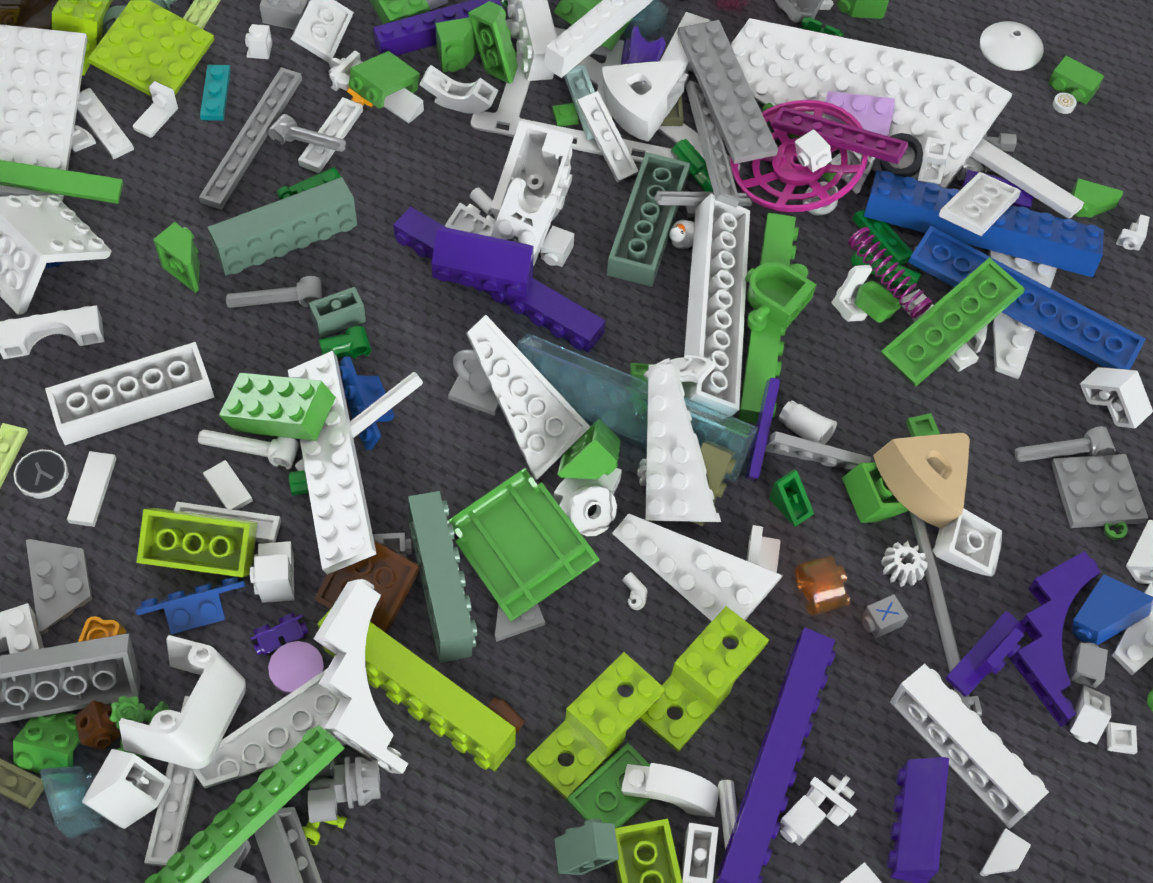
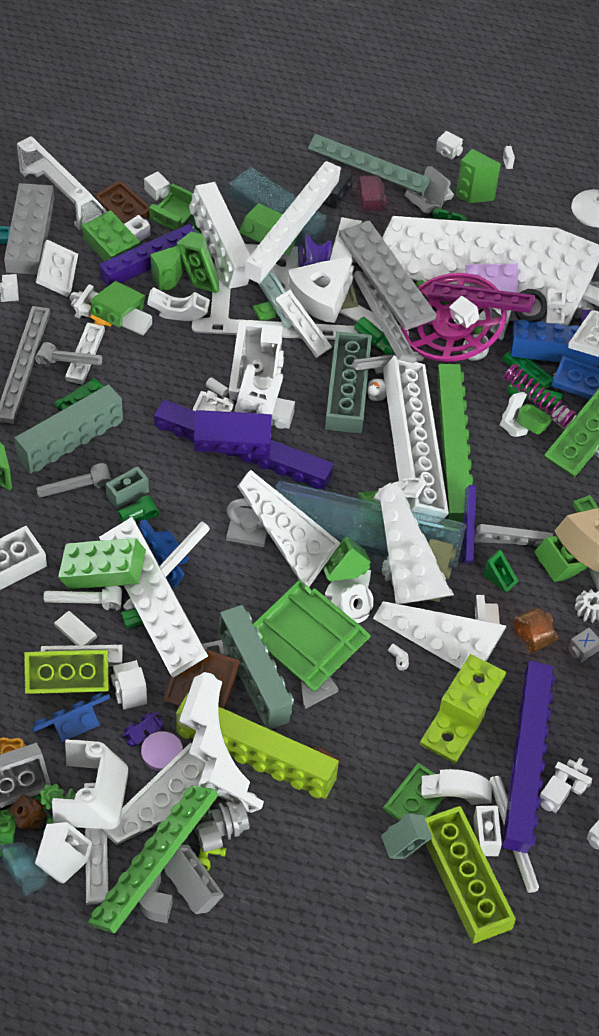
camera: 10 degrees left, 5 degrees down
(595, 725) = (393, 753): lime bracket -> none
(777, 294) = (459, 423): bright green piece -> none
(807, 423) = (499, 515): white plant -> none

